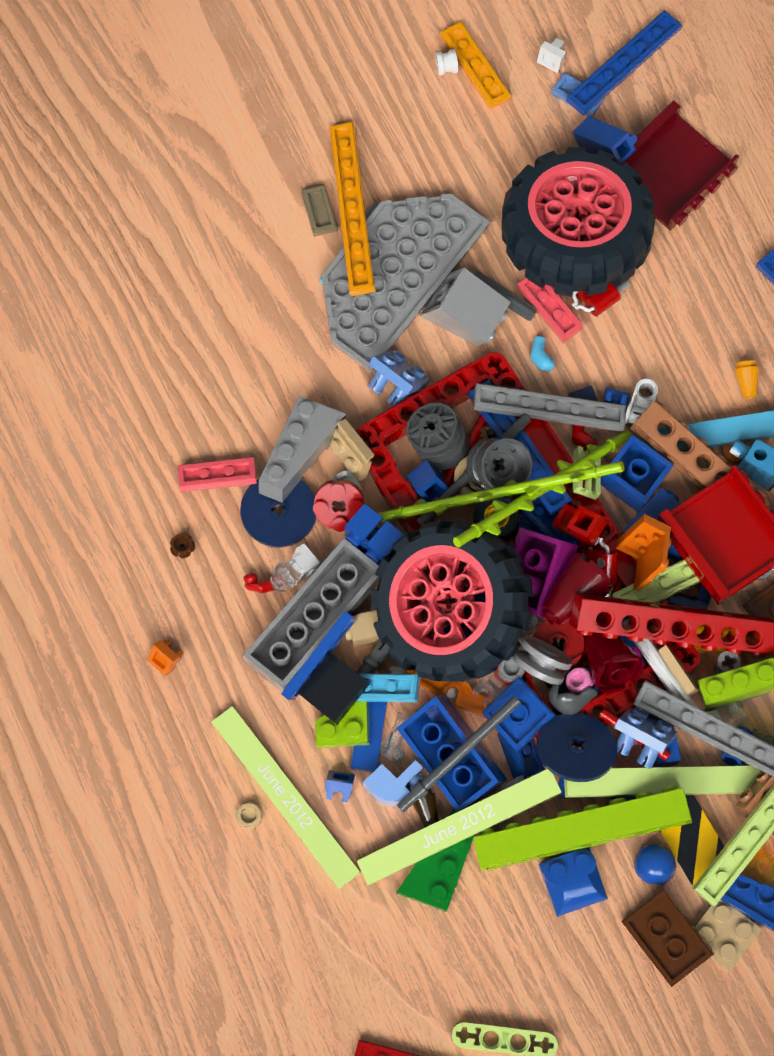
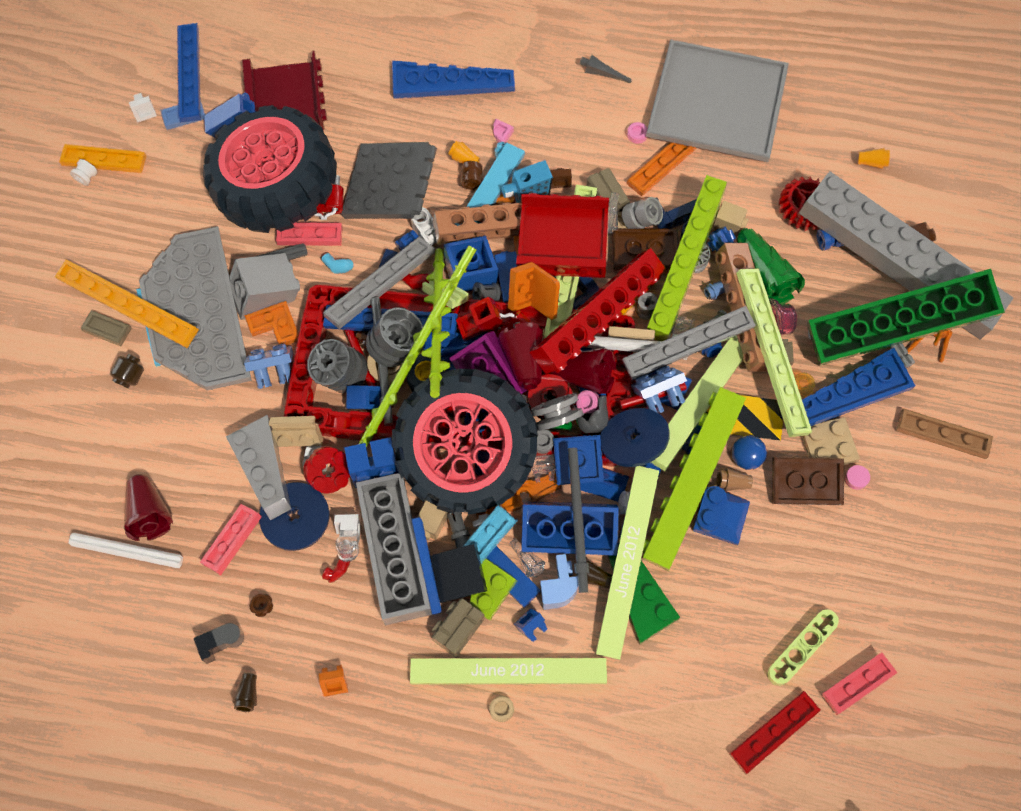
camera: 50 degrees left, 5 degrees down
(100, 594) = (246, 694): none -> dark brown cone
(125, 535) = (218, 640): none -> leg
(141, 397) = (126, 550): none -> white axle
(185, 383) = (145, 510): none -> dark red cone
(288, 724) = (457, 627): none -> dark tan brick
(293, 262) = (126, 371): none -> dark brown head
(446, 347) = (274, 318): none -> orange tile
(614, 868) = (733, 480): none -> medium nougat cone
(620, 509) = (482, 291): none -> dark grey bush
(661, 333) = (389, 180): none -> dark grey hinge
(710, 982) = (857, 477): none -> bright pink tile
(731, 402) = (471, 175): none -> reddish brown wheel

